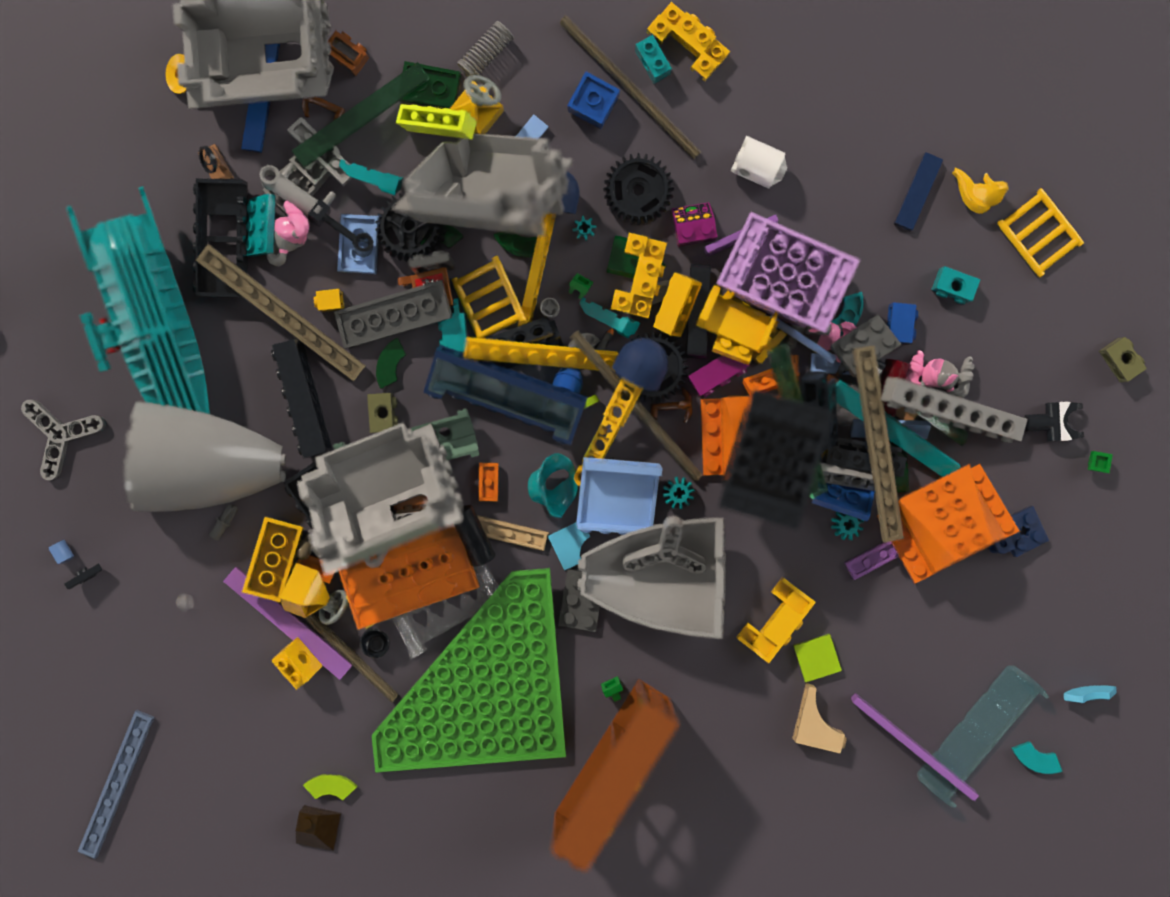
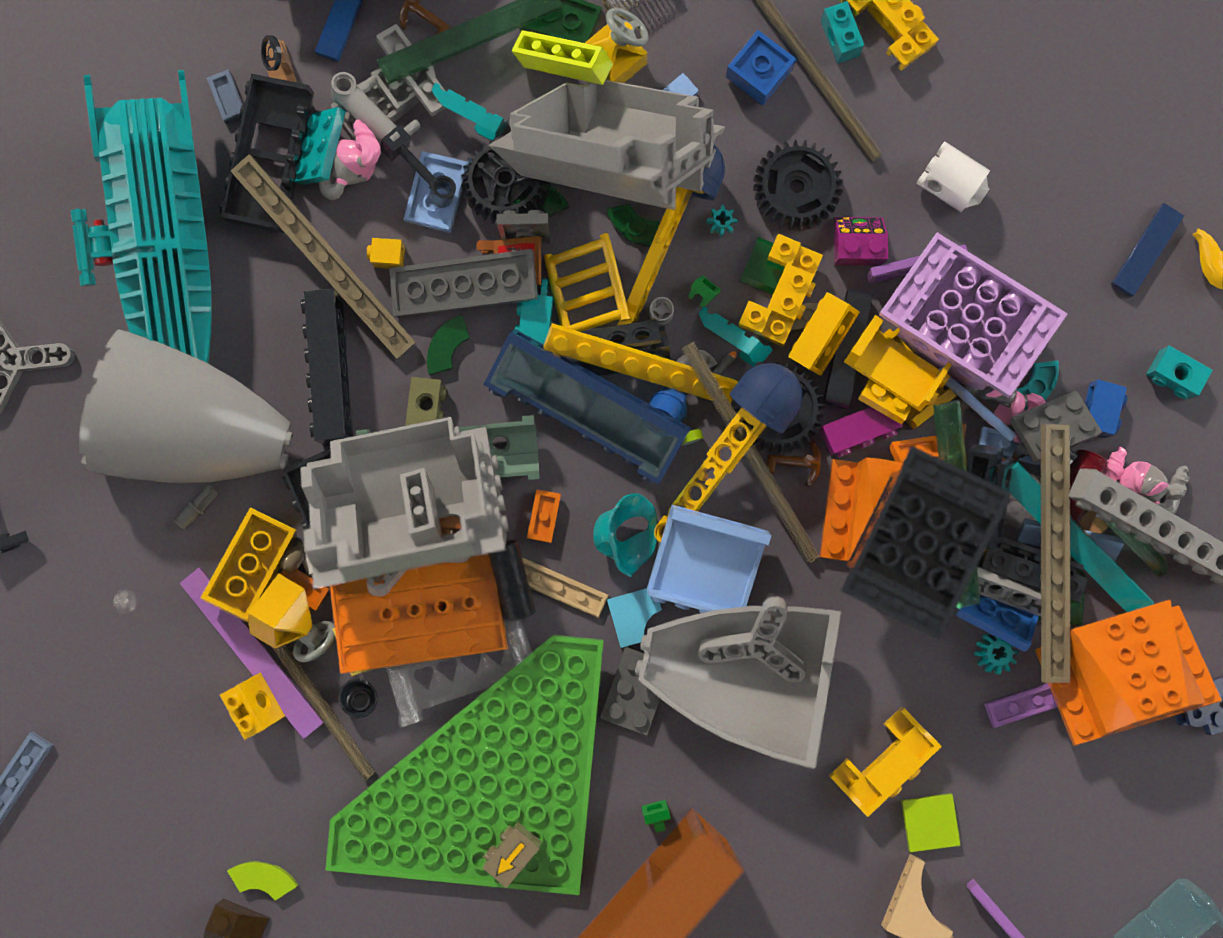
camera: 10 degrees right, 5 degrees down
(179, 196) = (226, 95): none -> sand blue tile
(394, 498) = (421, 508): none -> light grey brick
(510, 736) = (511, 854): none -> dark tan brick
(683, 497) = (790, 580): teal gear -> none

